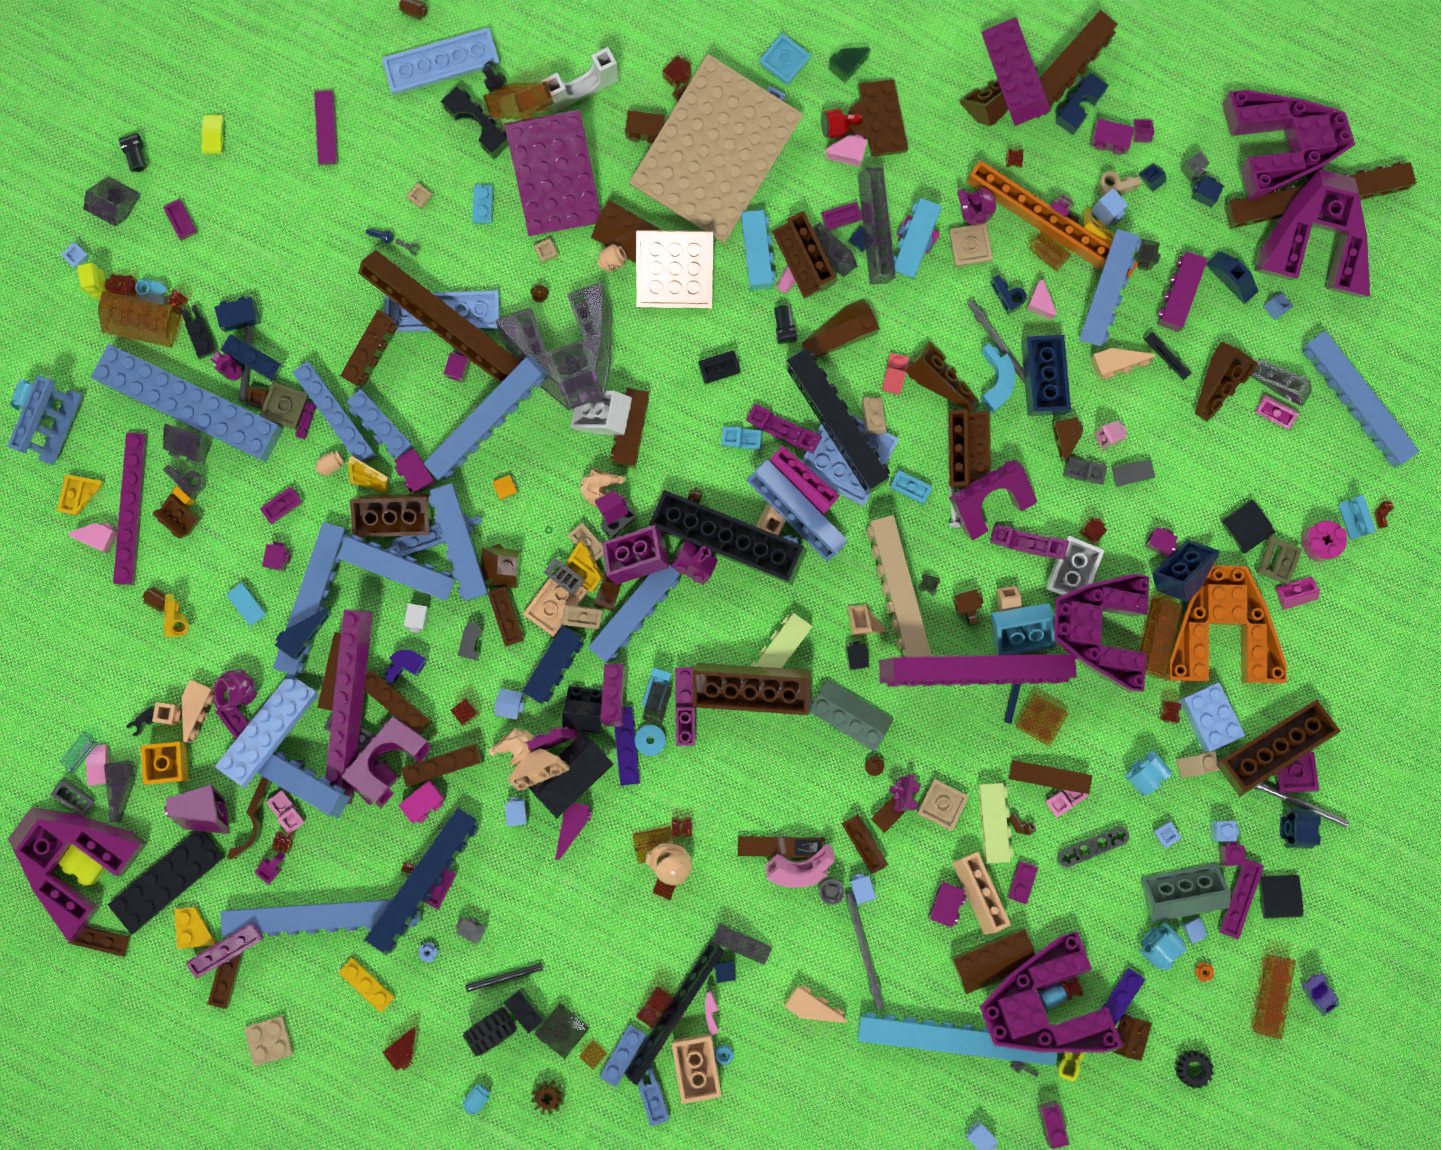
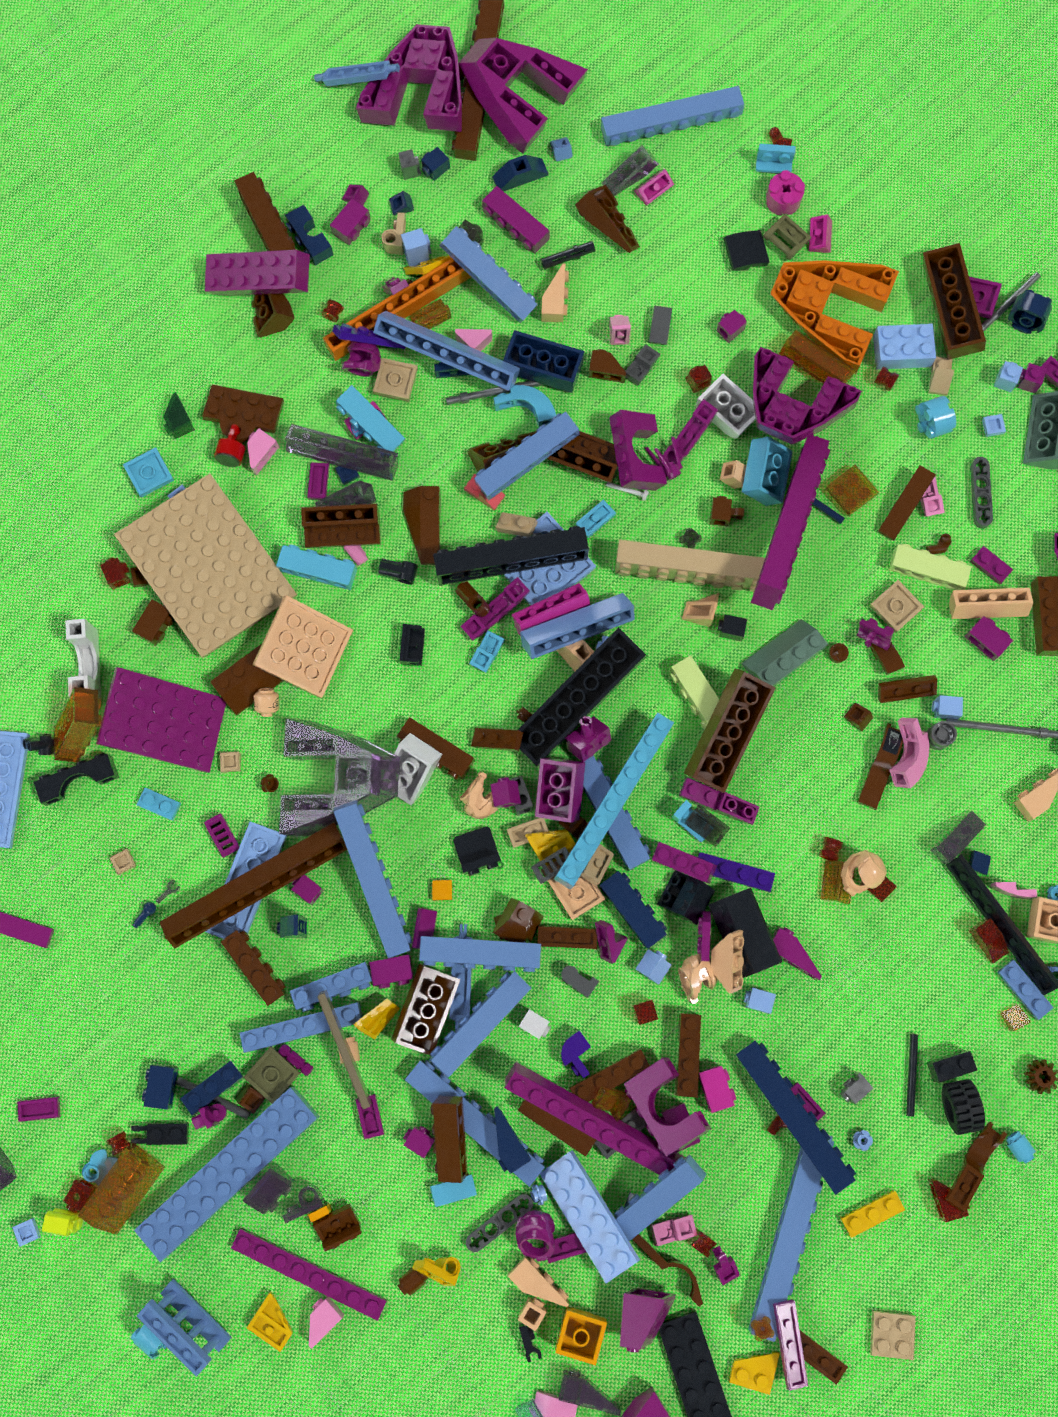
camera: 65 degrees left, 5 degrees down
(221, 919) = (768, 1331): none -> clear orange plate
(236, 652) = (499, 1222): none -> dark grey beam
(270, 679) = (538, 1194): none -> light blue plate
(286, 581) = (449, 1139): none -> reddish brown brick
(327, 457) = (344, 1049): none -> dark tan tile
(374, 711) = (612, 1101): none -> clear orange slope
(418, 369) = (292, 927): none -> slope
(441, 1061) = (972, 1170): none -> reddish brown piece
(466, 484) = (424, 925): none -> magenta tile
(472, 268) = (212, 831): none -> magenta slope
(515, 656) = (609, 942): none -> magenta slope
(551, 504) = (477, 851): none -> black bracket
(562, 1030) = (982, 1038): clear smoke slope -> none
(644, 607) = (613, 801): none -> medium azure brick
(650, 731) = (746, 847): medium azure piece -> none
(659, 479) = (497, 739): none -> reddish brown plate
(785, 403) = (472, 599): none -> reddish brown piece
(820, 808) = (859, 716): none -> reddish brown slope
(940, 396) = (527, 455): none -> medium blue brick
(989, 539) = (671, 469): none -> magenta plant
(998, 202) = (363, 335): none -> dark purple plate
(1014, 279) = (446, 350): none -> medium blue brick
(1185, 570) = (766, 314): dark blue slope -> none
(1266, 77) = (357, 73): none -> medium blue plate

